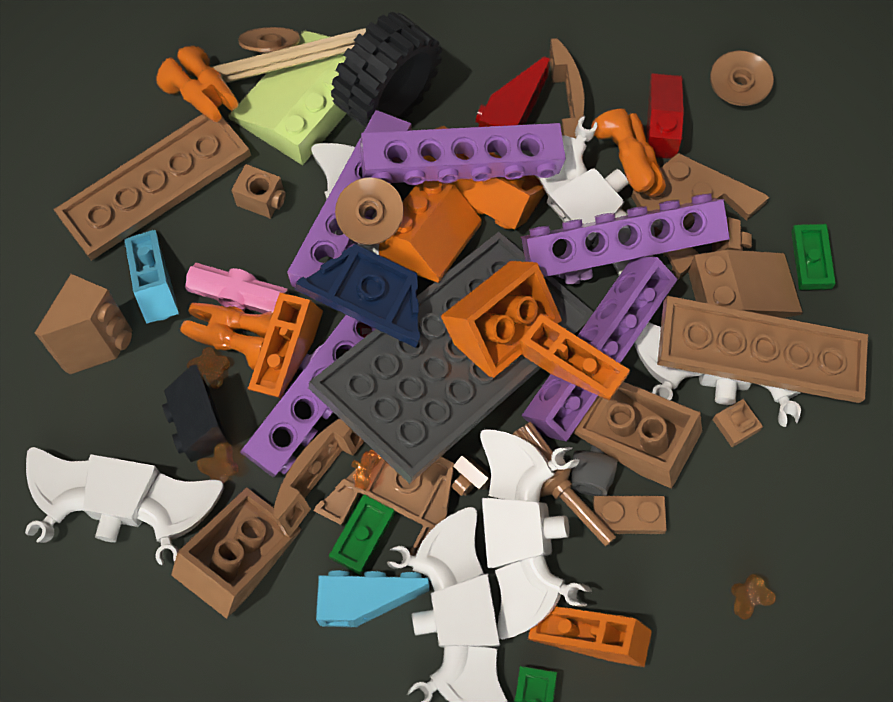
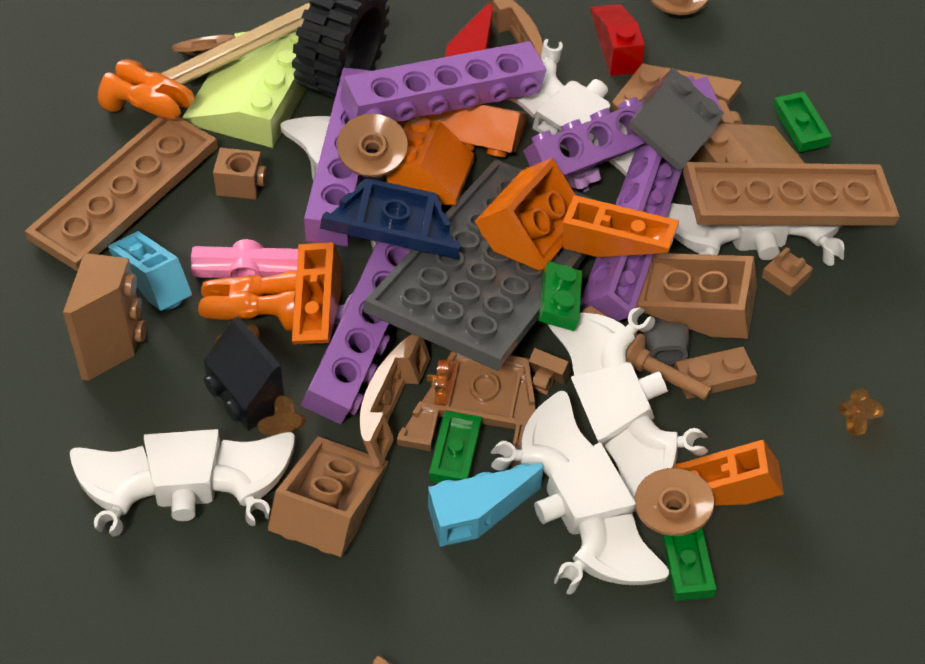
camera: 20 degrees left, 15 degrees down
(497, 414) = (560, 296): none -> green plate
(536, 632) = (674, 489): none -> medium nougat dish
(634, 152) = (589, 53): orange piece -> none
(671, 247) = (675, 118): none -> dark grey slope

